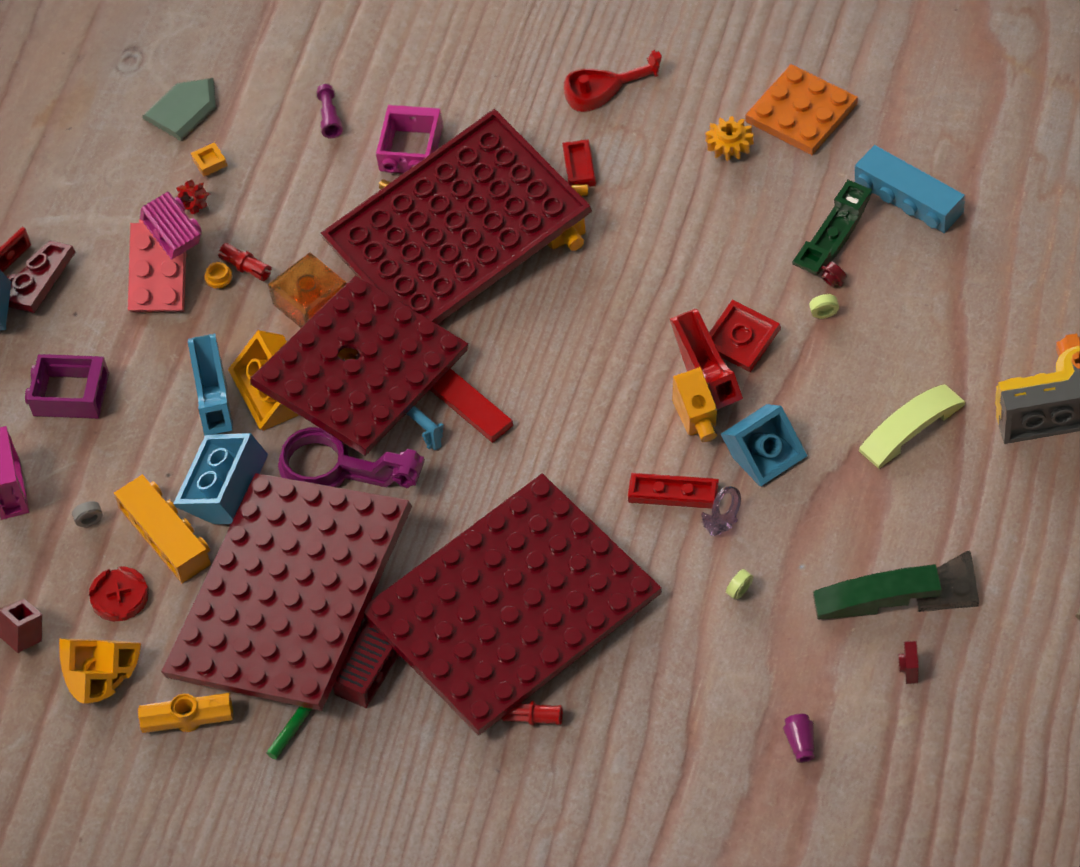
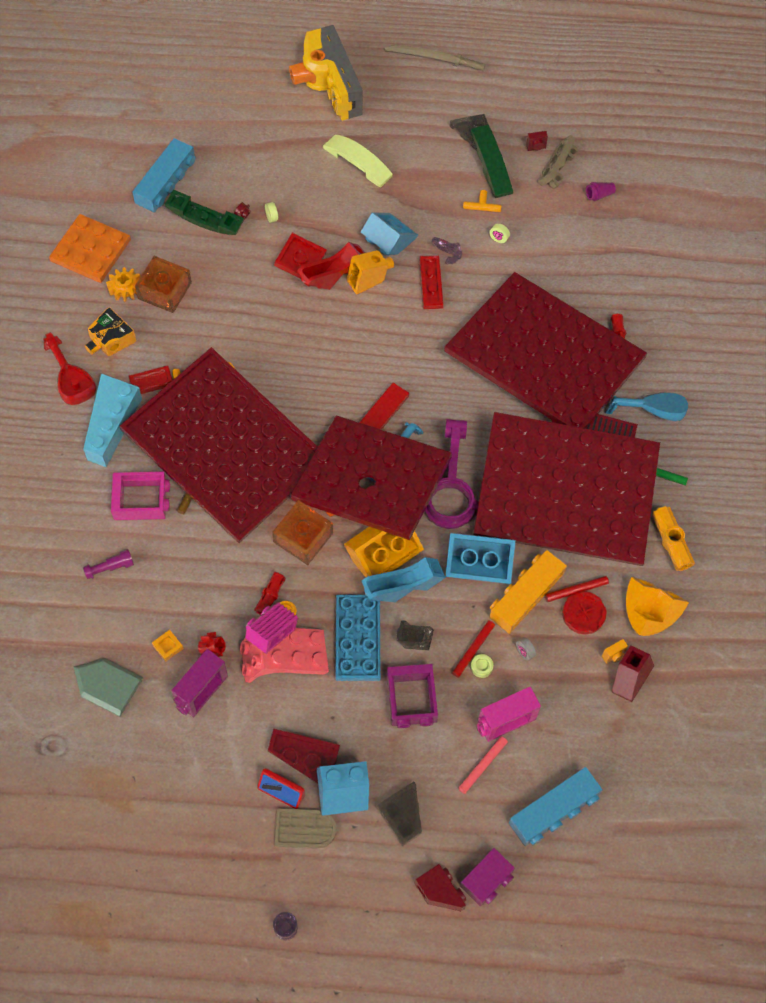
camera: 110 degrees left, 10 degrees up
(50, 611) = (615, 651): none -> light orange plate
(85, 469) = (482, 666): none -> yellowish green tile
(106, 460) = (472, 650): none -> red bar
(141, 171) = (199, 683): none -> magenta window
(143, 398) = (414, 636): none -> clear smoke bracket
(153, 591) = (576, 588): none -> red bar
(155, 344) = (357, 638): none -> dark azure tile
(391, 741) = (664, 405): none -> dark azure piece
(537, 116) = (112, 407): none -> medium azure wedge
(655, 120) = (109, 334): none -> torso
(715, 174) = (163, 284): none -> clear orange brick
(802, 574) = (482, 205): none -> light orange piece
(864, 686) = (557, 162): none -> dark tan plate

